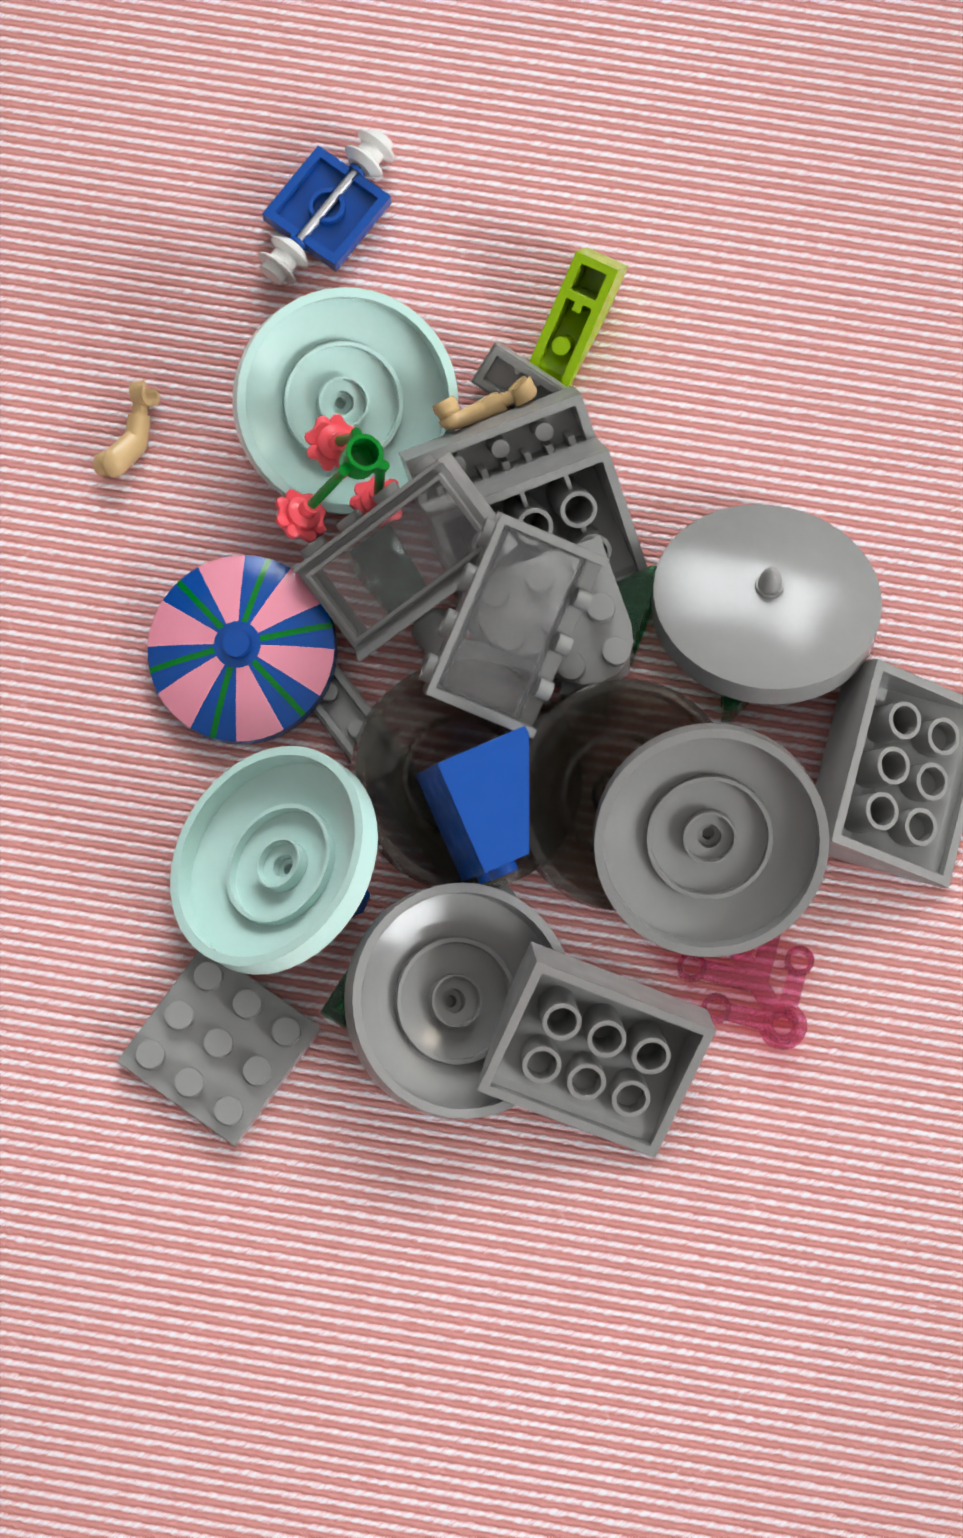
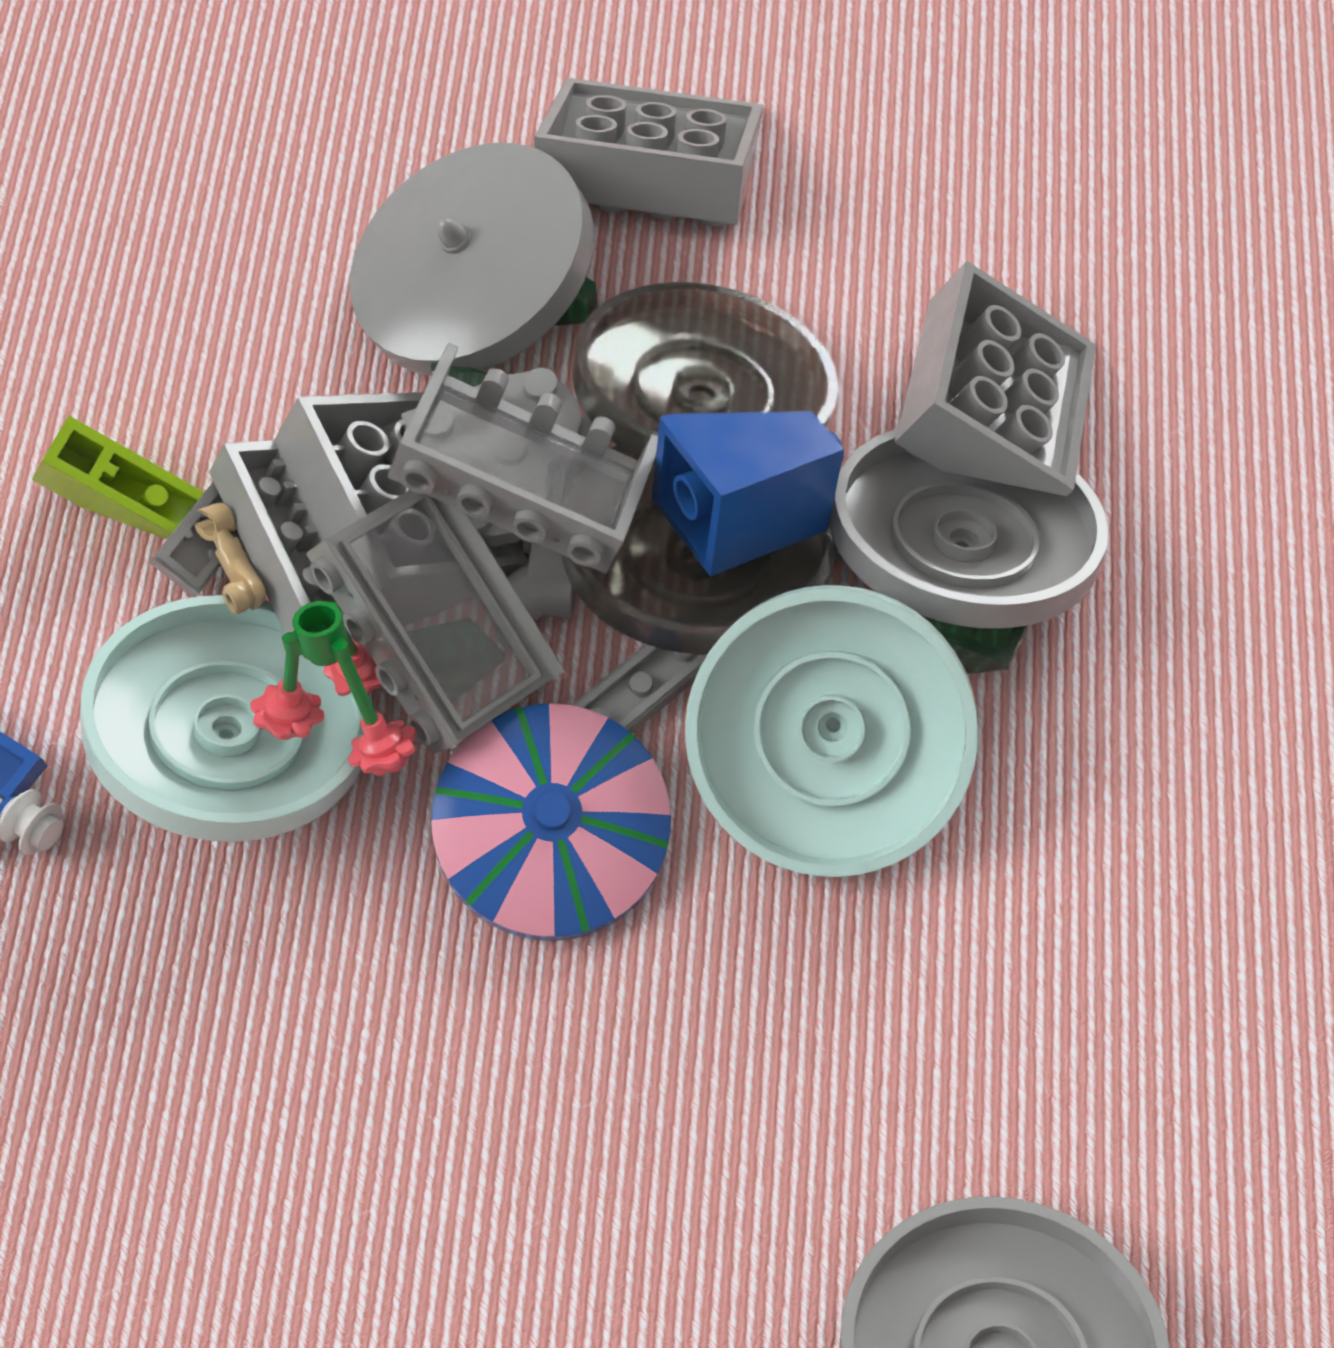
camera: 95 degrees left, 10 degrees down
(134, 441) = (274, 987): tan arm -> none
(219, 1046) = (1052, 805): light grey plate -> none
(710, 840) = (754, 272): light grey container -> none
(753, 976) = (876, 266): clear pink plant -> none

